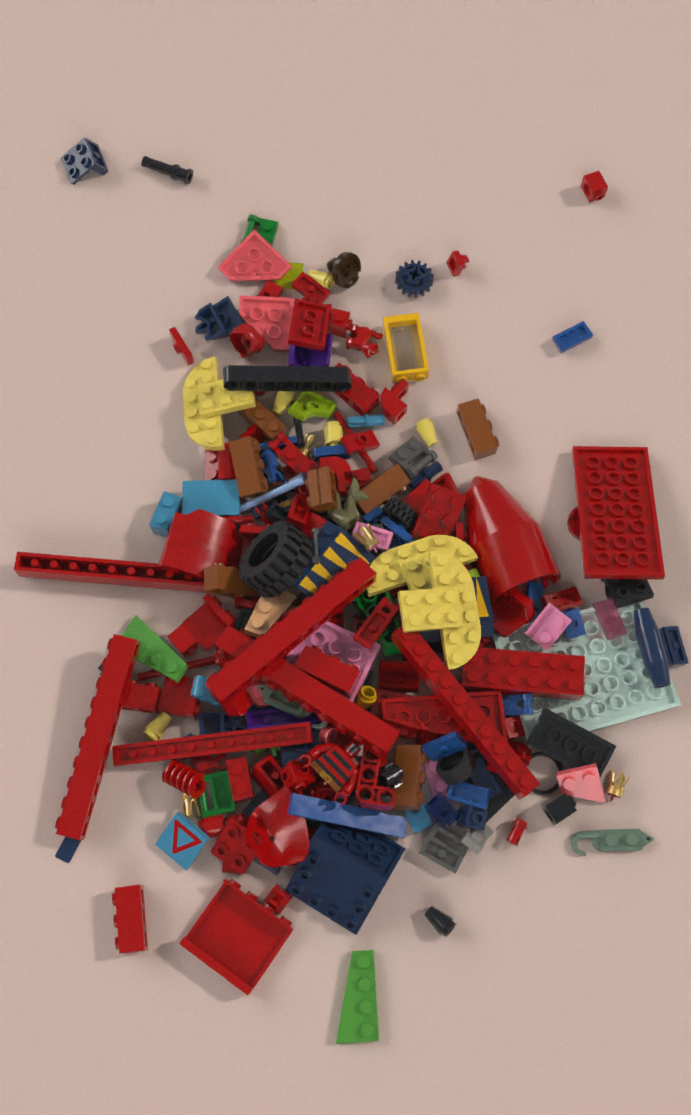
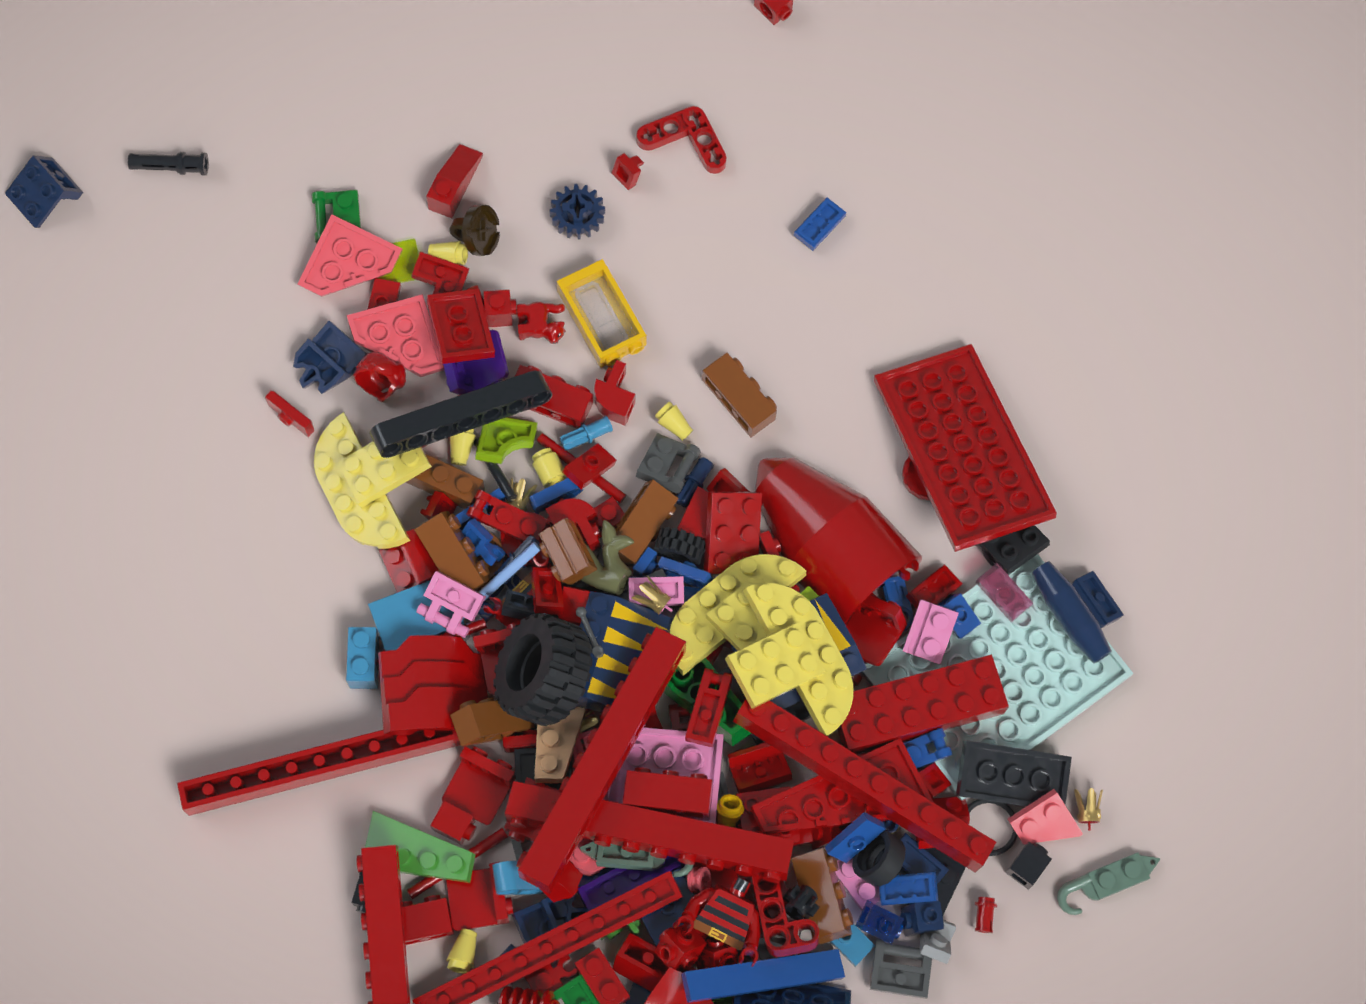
camera: 25 degrees left, 0 degrees up
(238, 494) = (455, 597): none -> bright pink plate
(340, 235) = (453, 181): none -> red slope
(505, 249) = (685, 128): none -> red beam

